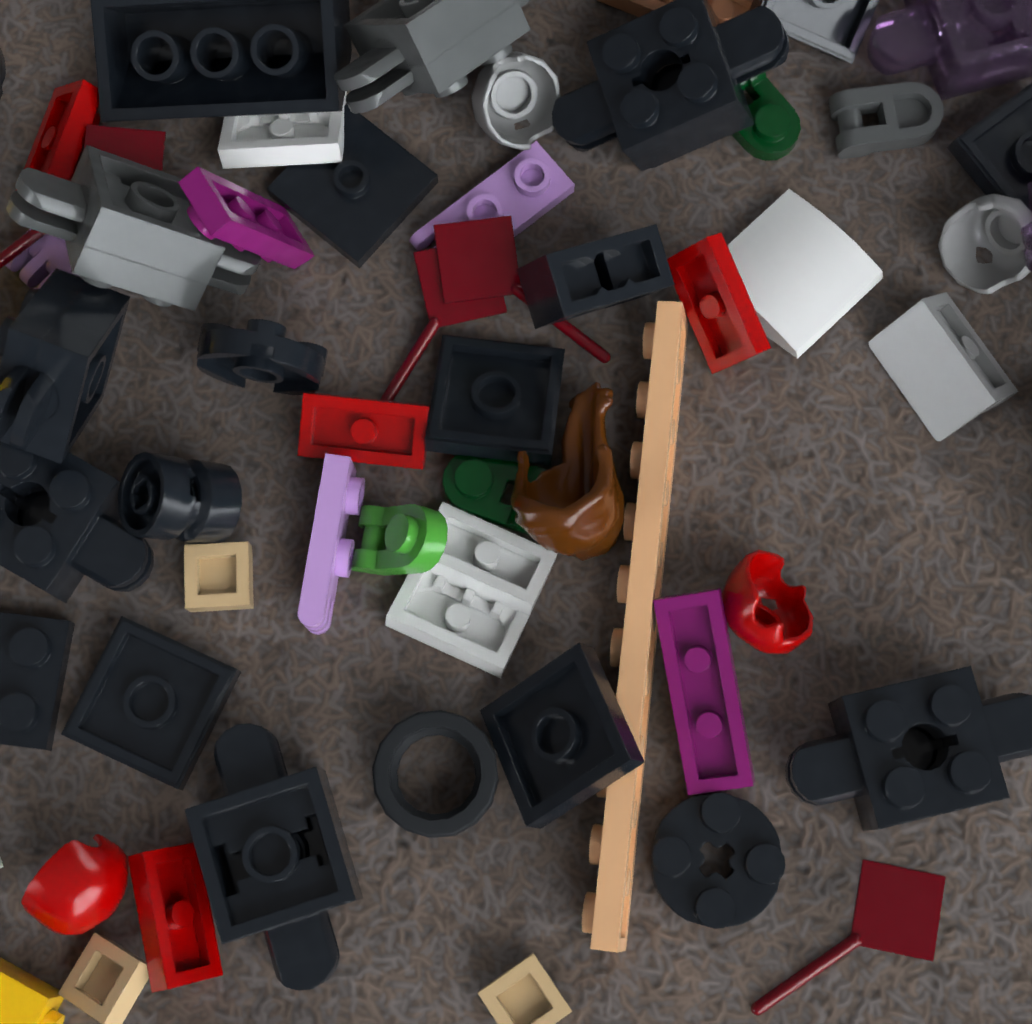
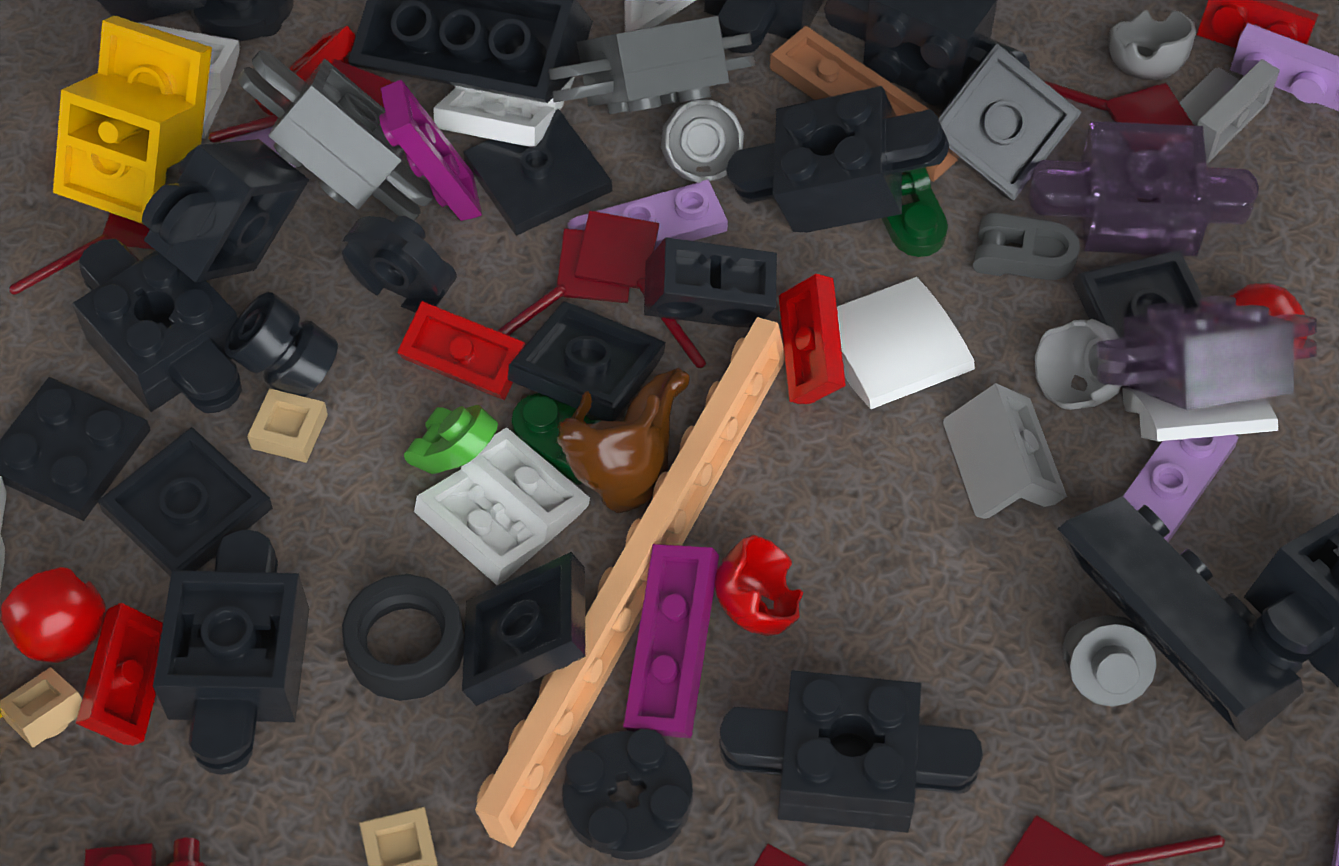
camera: 20 degrees right, 20 degrees down
(328, 550) = (392, 425): lavender hinge -> none

